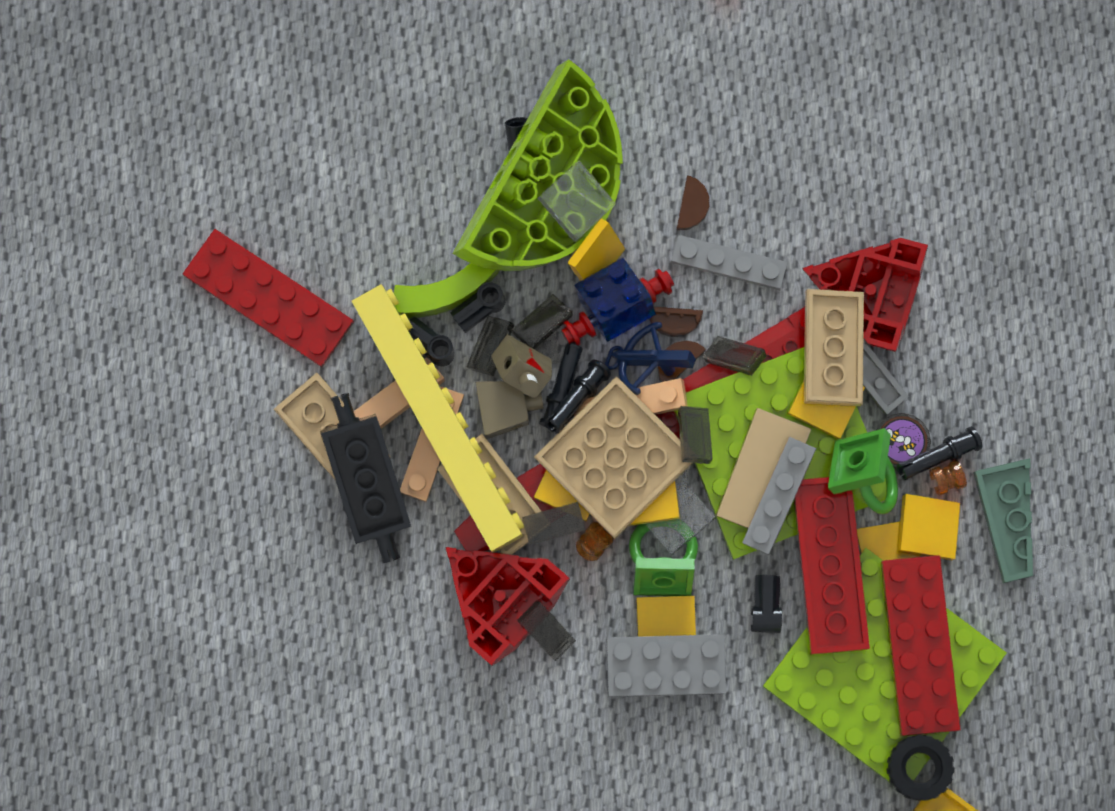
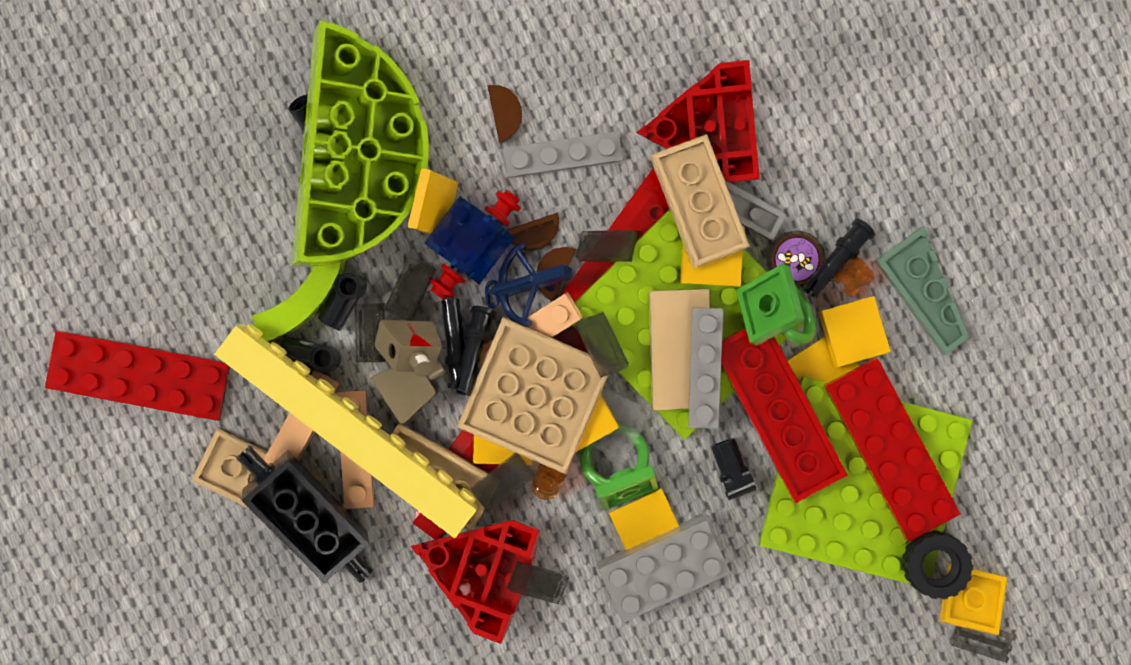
camera: 20 degrees left, 10 degrees up
(576, 201) = (390, 161): clear tile -> none

